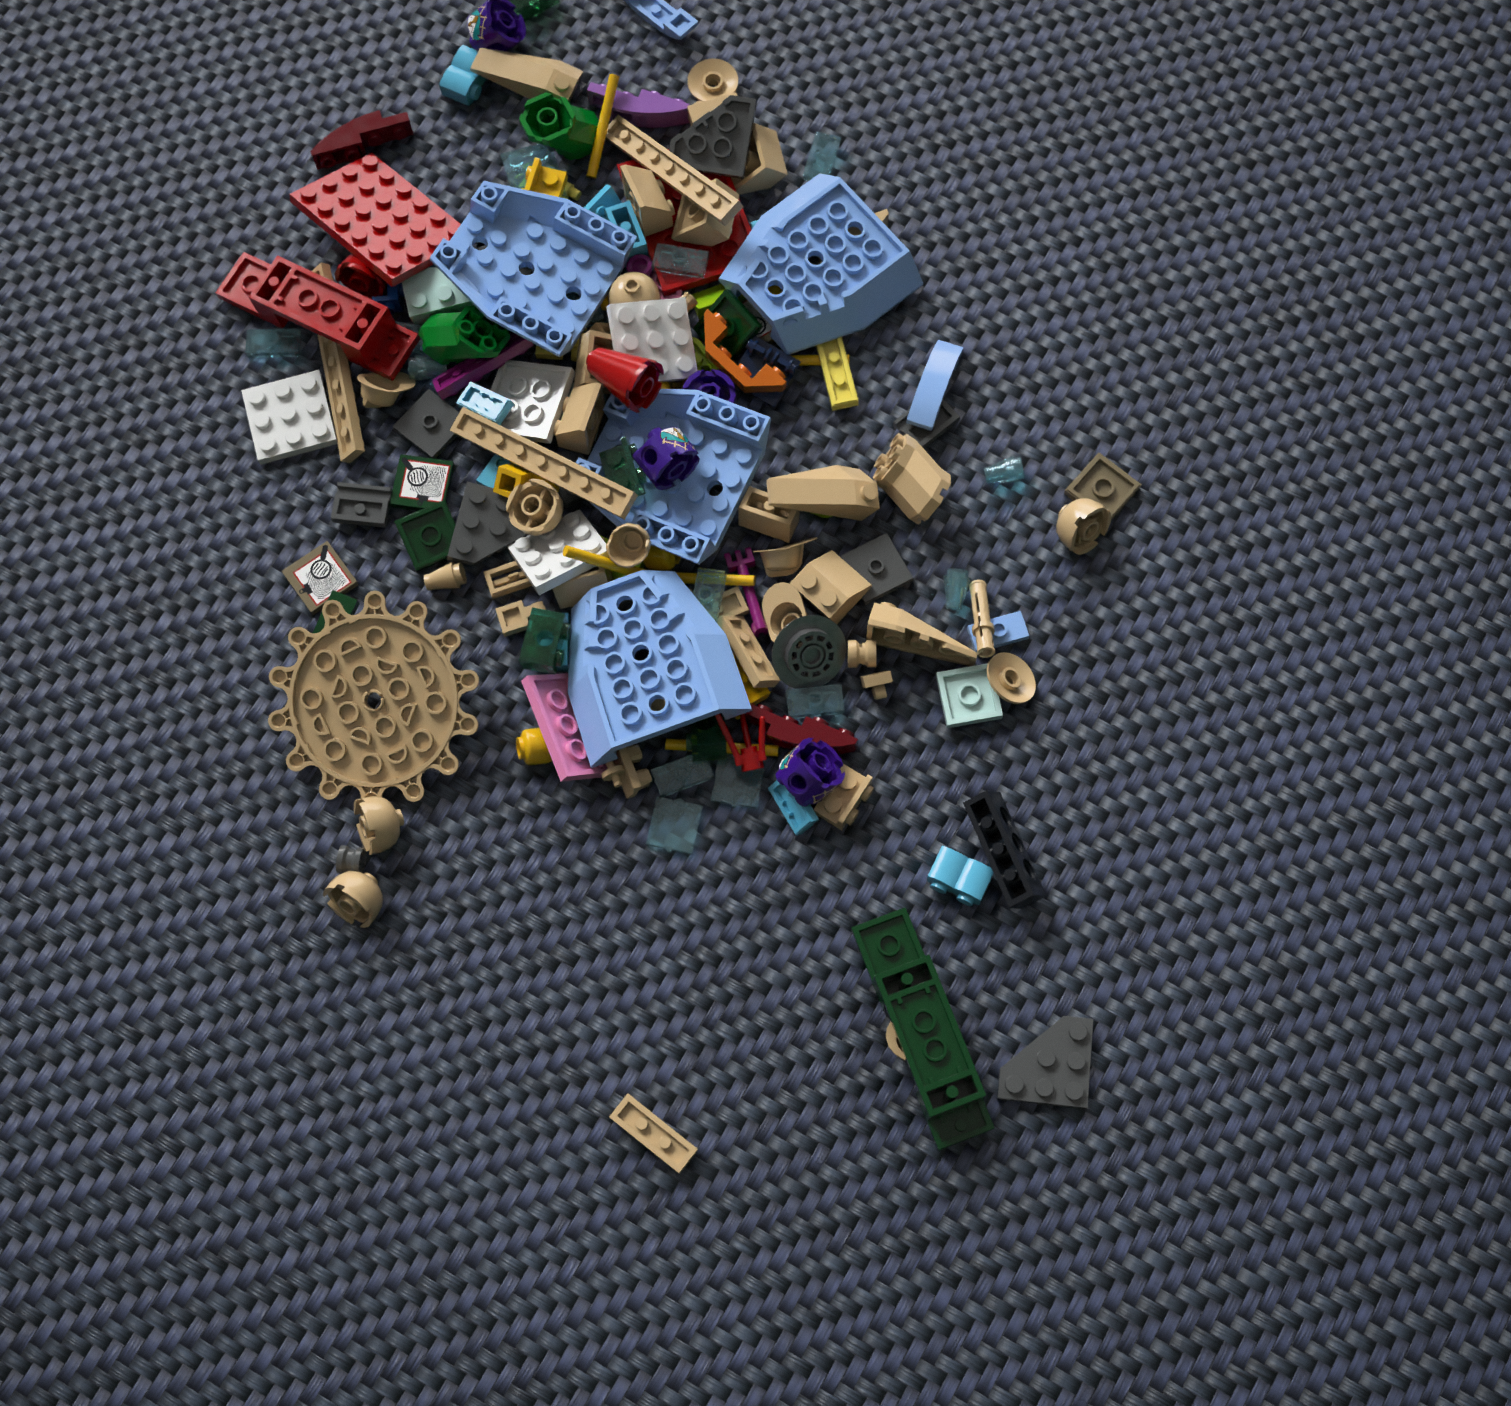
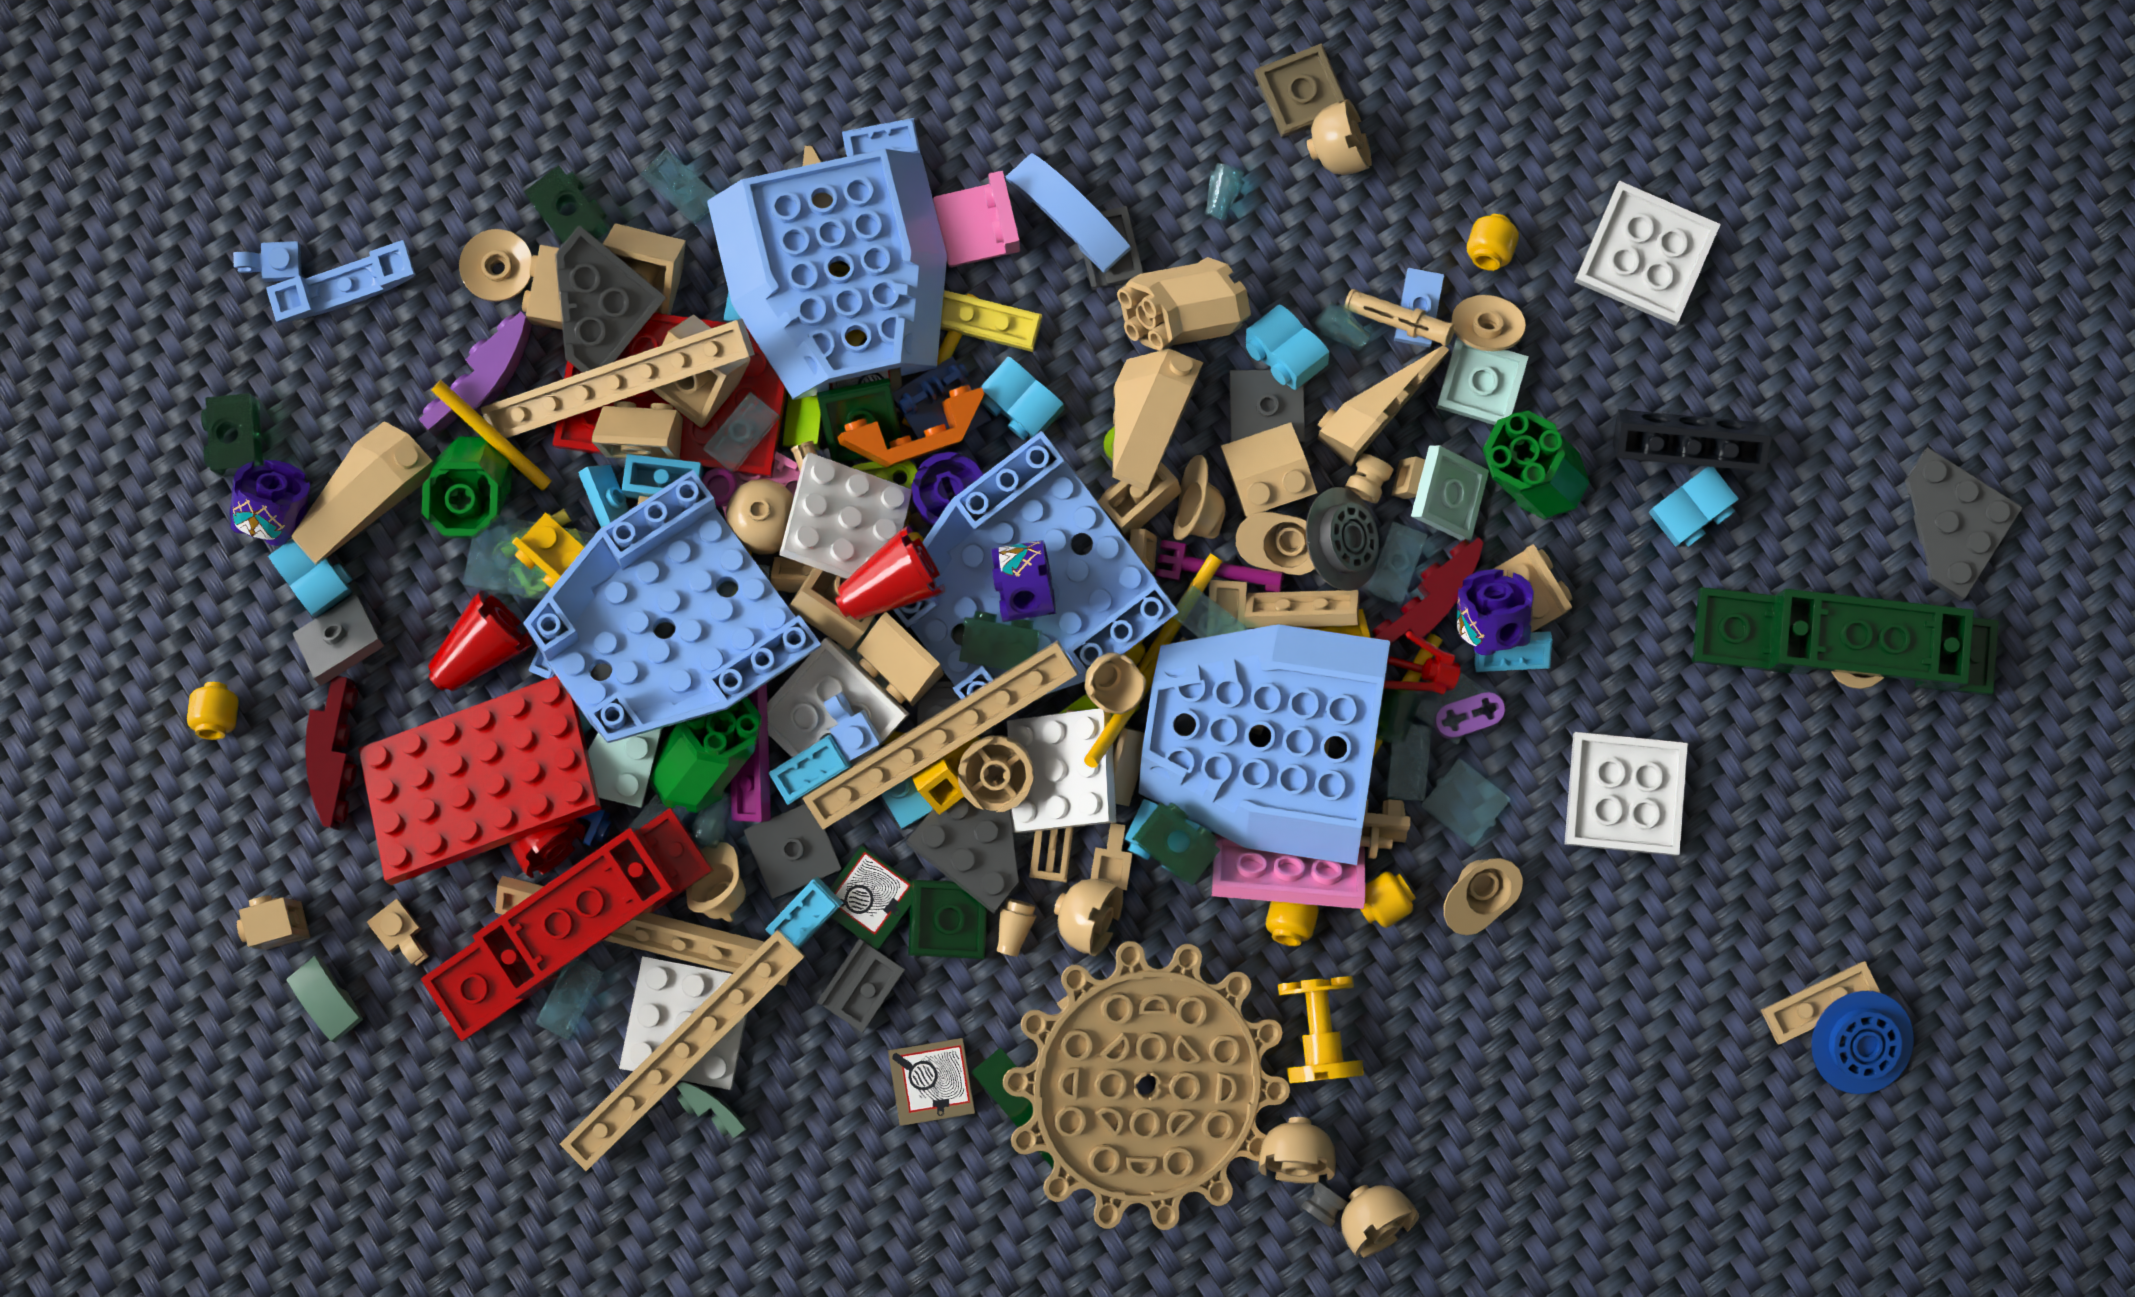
camera: 65 degrees left, 10 degrees up
(203, 209) = (324, 1000): none -> sand green slope
(237, 153) = (272, 922): none -> tan brick
(242, 447) = (702, 1101): none -> sand green slope
(267, 415) = (682, 1050): none -> tan plate
(268, 227) = (397, 929): none -> tan plate
(354, 64) = (212, 711): none -> yellow head
(390, 448) = (806, 912): none -> medium azure plate
(431, 107) = (338, 639): none -> dark grey plate
(456, 803) = (1322, 1046): none -> yellow piece
(464, 178) = (477, 643): none -> red cone
(474, 617) = (1087, 914): none -> tan cylinder
(522, 413) = (854, 732): none -> light blue plate
(578, 800) = (1387, 899): none -> yellow head
(610, 859) = (1482, 894): none -> tan piece
(638, 1176) = (1876, 1054): none -> blue wheel
(729, 800) = (1466, 707): none -> medium lavender beam
(733, 927) = (1626, 793): none -> white plate
(736, 536) = (1144, 545): none -> tan tile
(777, 90) = (555, 191): none -> clear green brick
(795, 415) = (1020, 399): none -> medium azure brick
(878, 707) = (1450, 493): none -> light aqua plate
(898, 336) = (977, 222): none -> bright pink bracket
(920, 557) = (1286, 347): none -> medium azure brick
(925, 260) = (893, 135): none -> light blue plate
(928, 752) = (1535, 465): none -> green brick
(1069, 654) = (1492, 242): none -> yellow head
(1121, 760) = (1647, 253): none -> white plate

